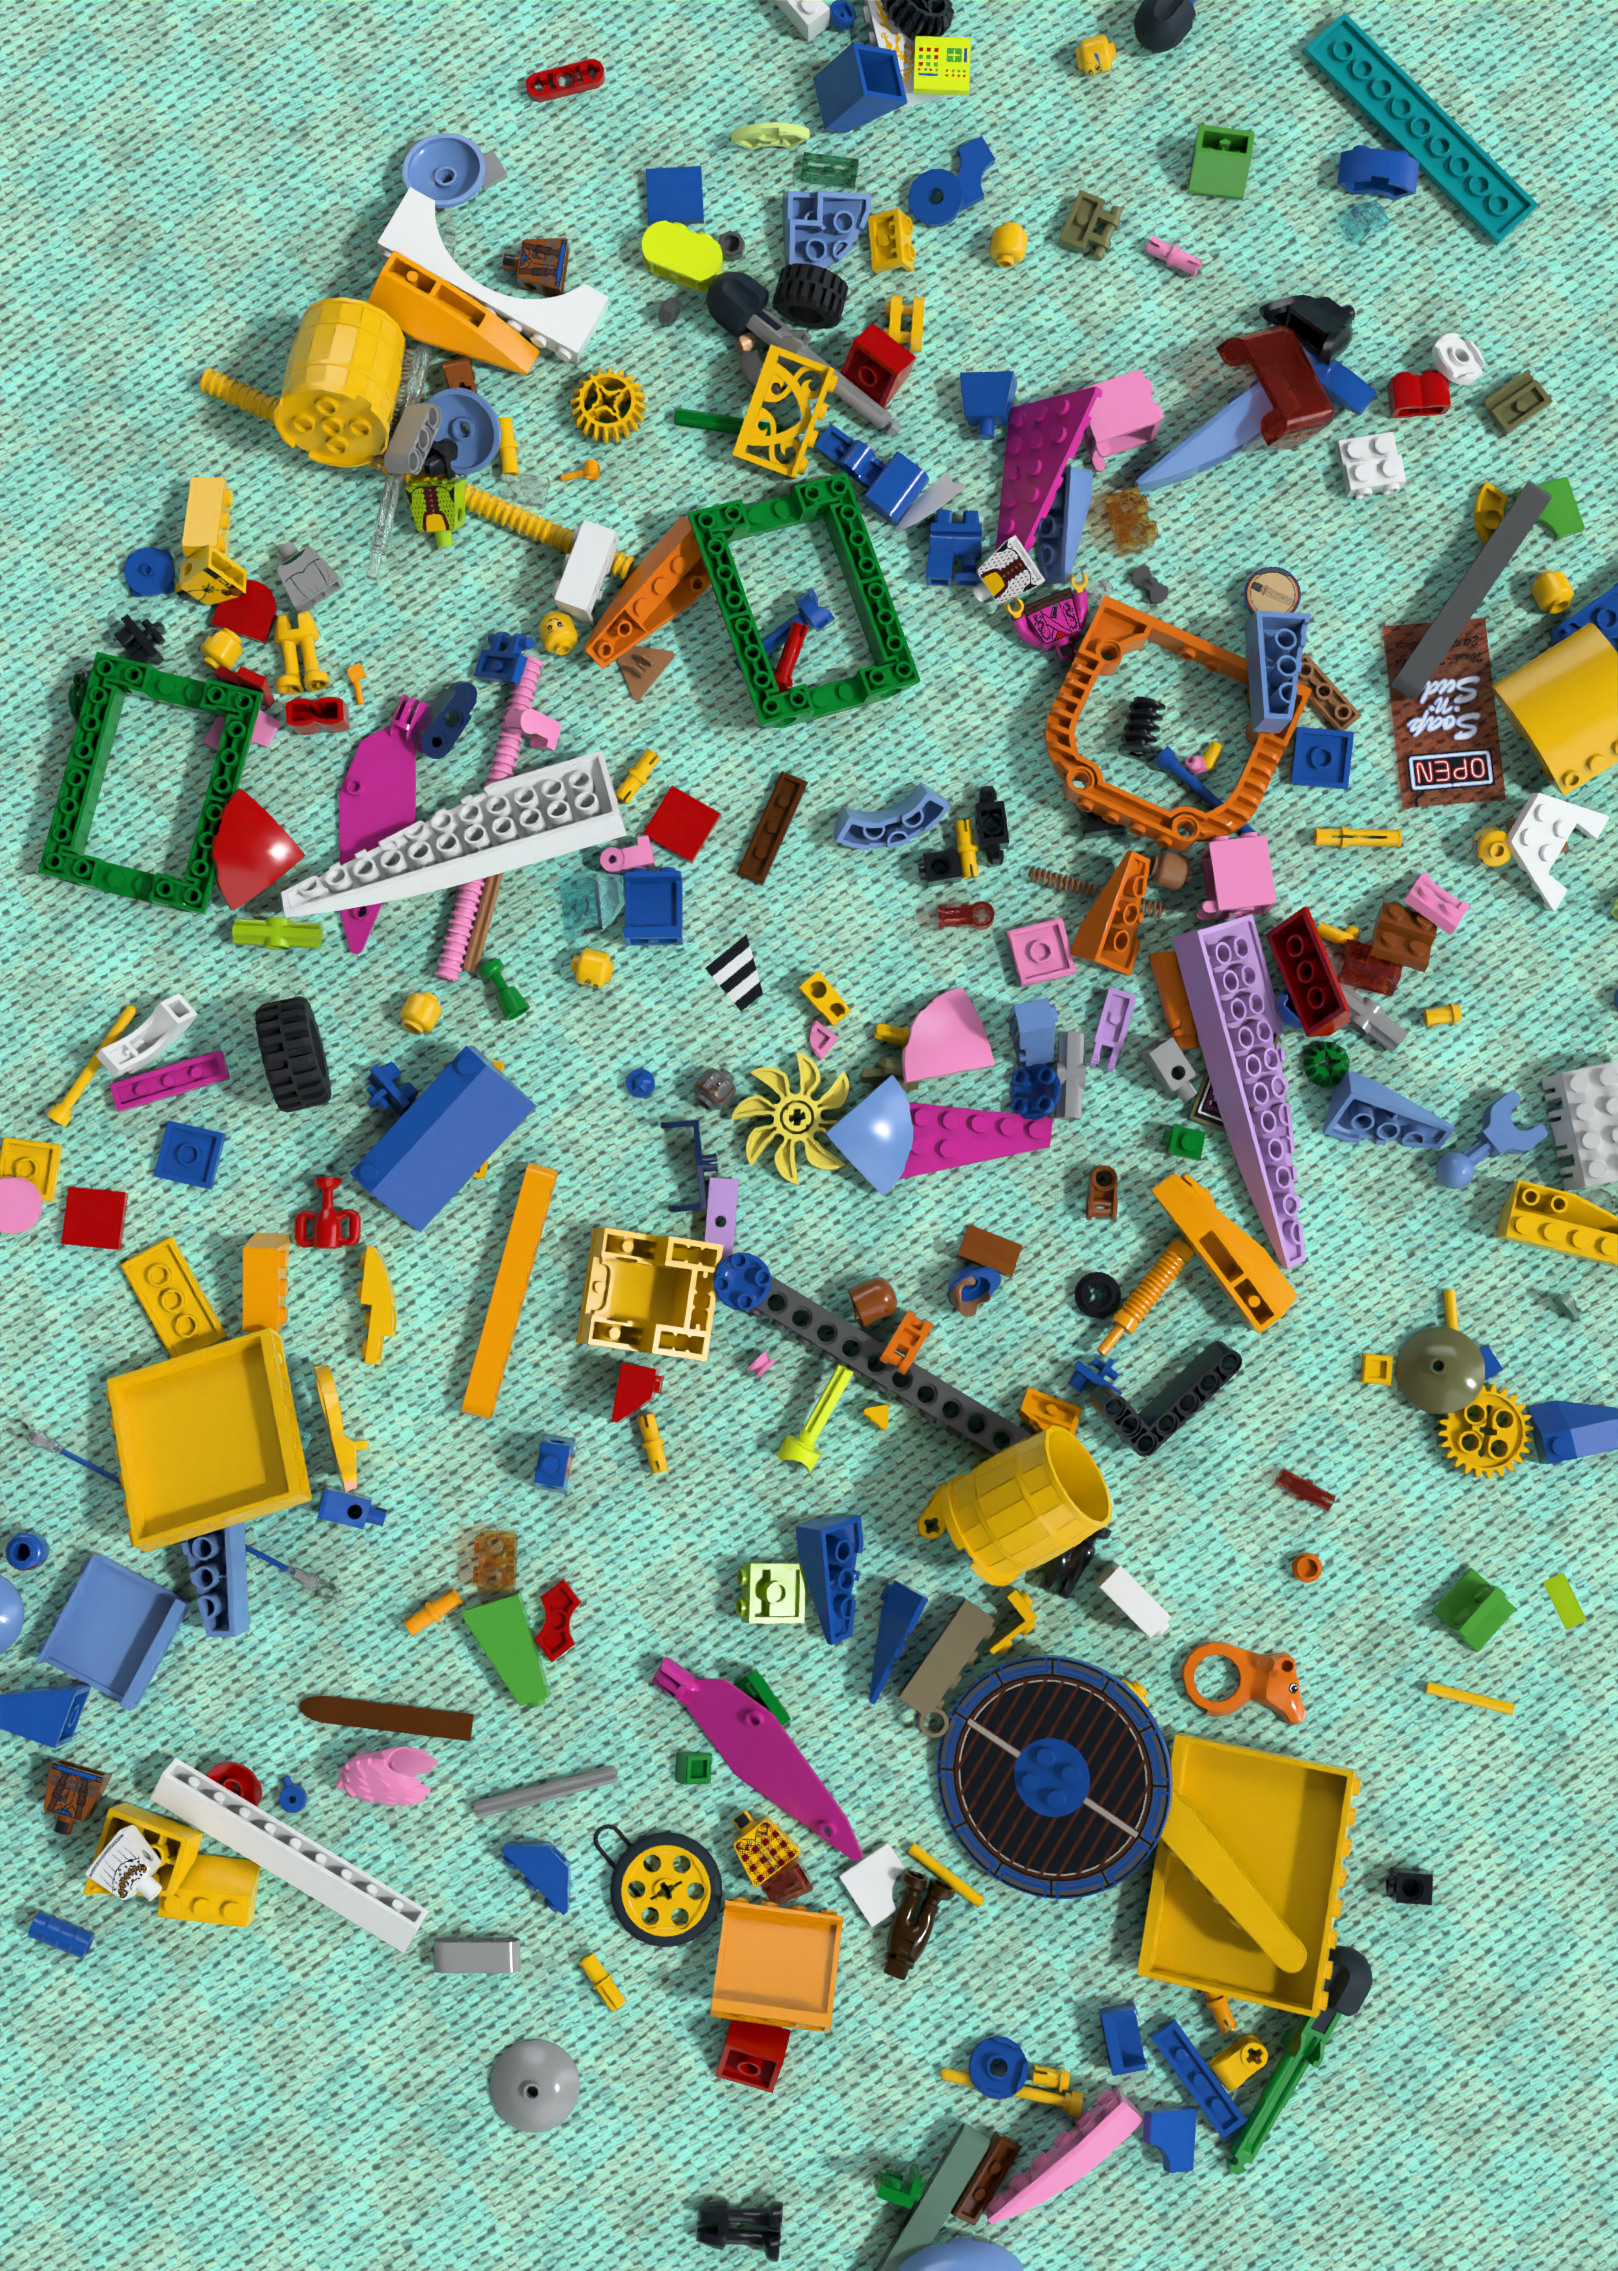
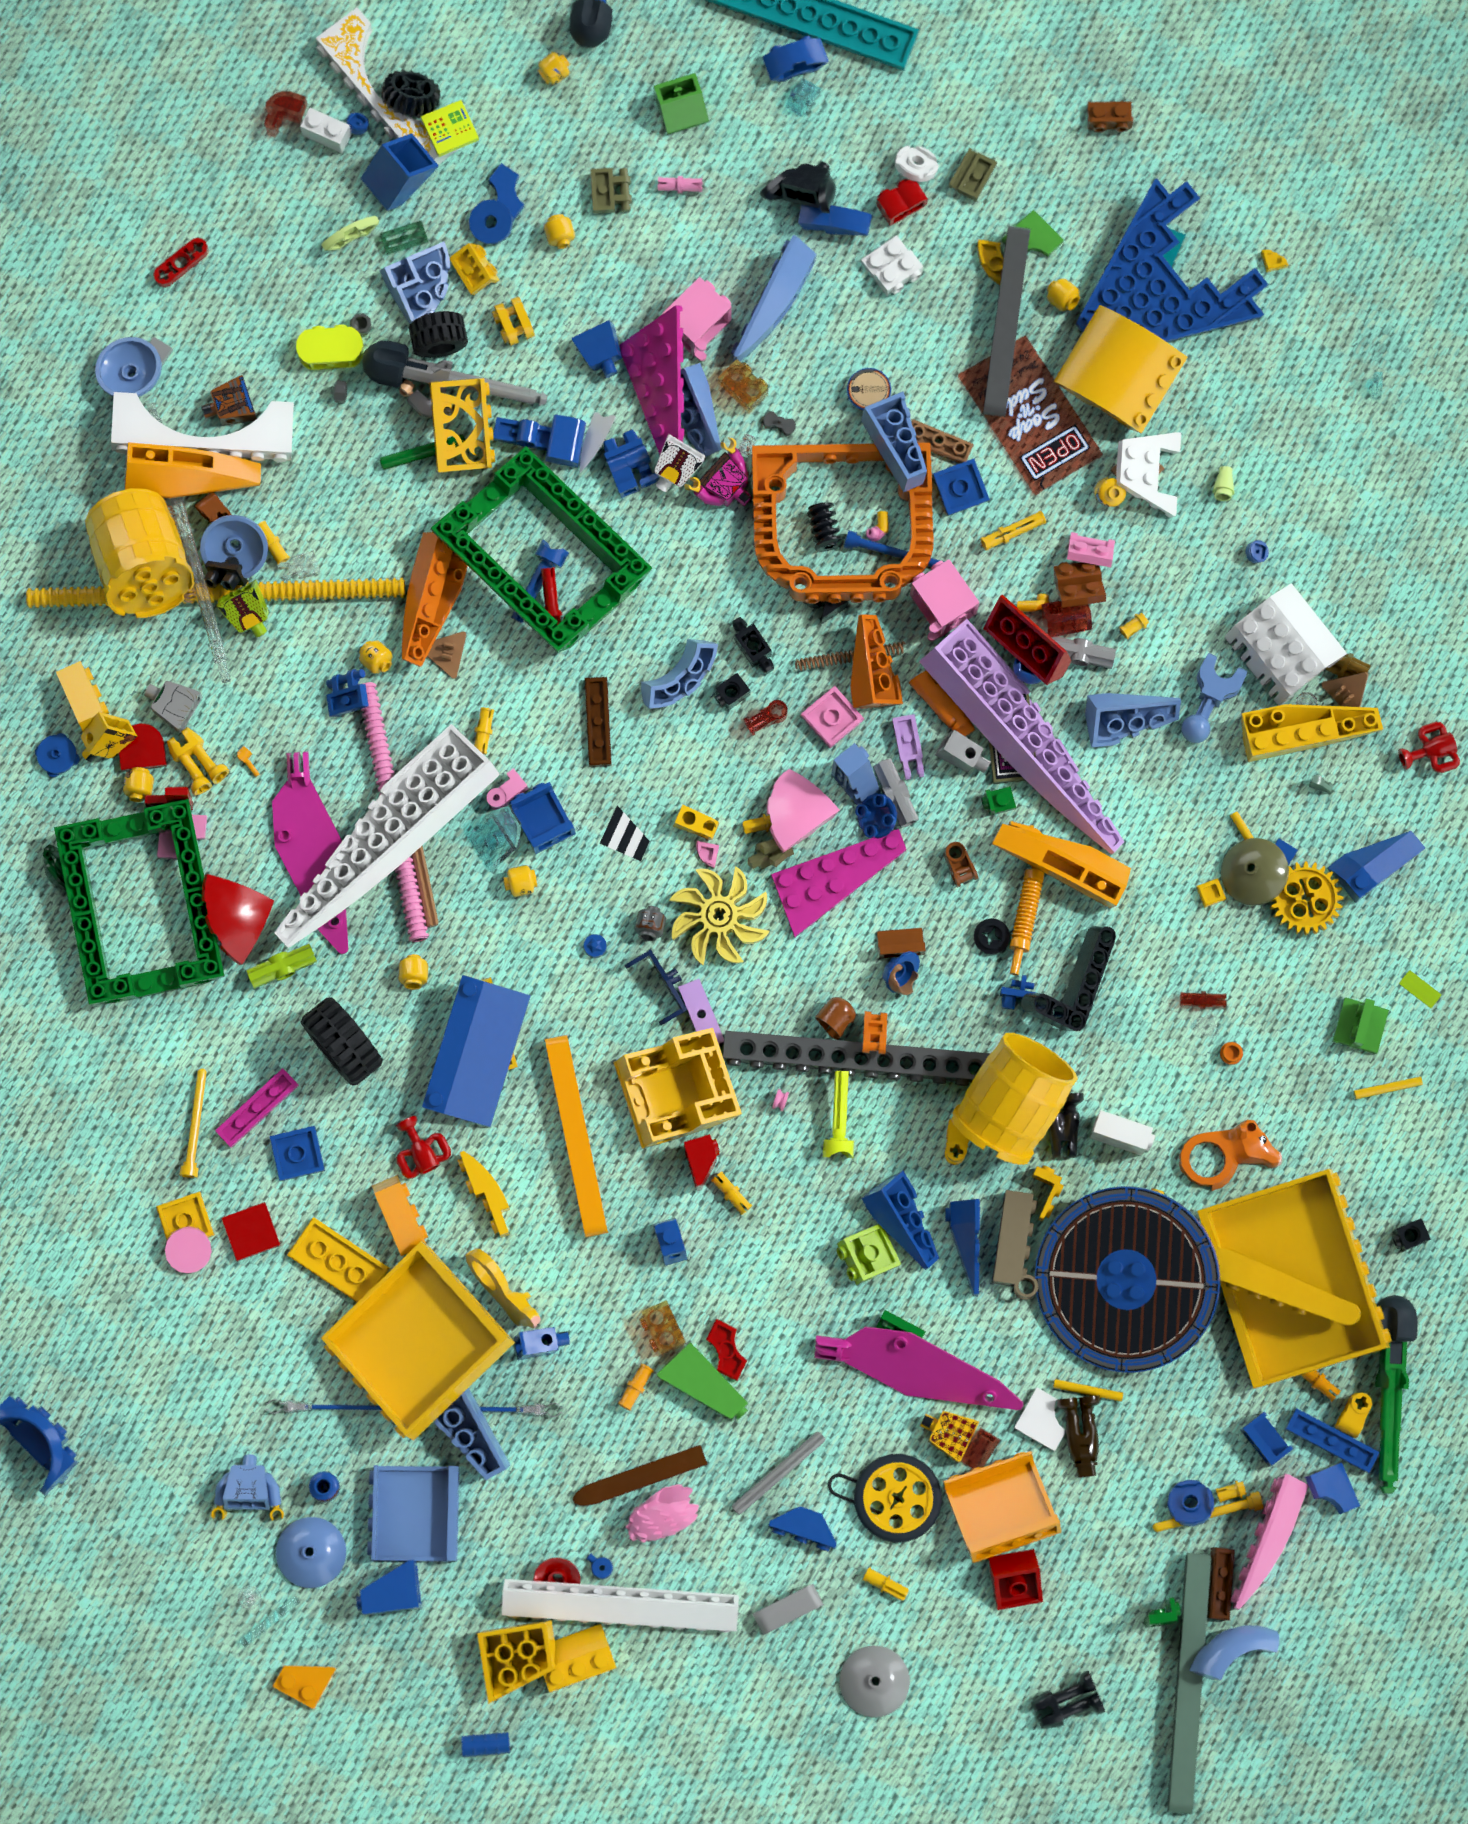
camera: 30 degrees left, 5 degrees down
(73, 1793) = (444, 1641): torso -> none
(127, 1866) = (512, 1662): white torso -> none
(131, 632) = (68, 802): black hips -> none
(153, 1037) = (229, 1081): white arch -> none
(324, 714) = (228, 800): red brick -> none
(386, 1093) = (417, 1039): blue hips -> none
(412, 438) = (207, 568): light grey beam -> none
(435, 736) = (326, 757): dark blue piece -> none
(509, 999) = (471, 932): green piece -> none
(538, 727) = (394, 730): bright pink leg -> none
(585, 571) = (376, 603): white wedge -> none
(590, 472) = (340, 532): light orange hand -> none
(625, 391) = (322, 494): yellow gear -> none
(675, 195) = (301, 307): blue tile -> none
(682, 824) = (532, 749): red tile -> none
(693, 1768) = (874, 1405): green slope -> none
(742, 1281) = (738, 1046): blue dish -> none
(877, 365) = (509, 360): red slope -> none
(877, 1135) = (782, 898): medium blue brick -> none
(878, 1415) = (880, 1095): yellow slope -> none
(966, 849) = (743, 669): yellow pin -> none
(1043, 1411) = (990, 1034): light orange wing -> none
(1170, 870) = (894, 616): medium nougat head -> none
(1288, 381) = (805, 236): clear red windscreen -> none
(1320, 1075) = (1070, 708): green gear -> none

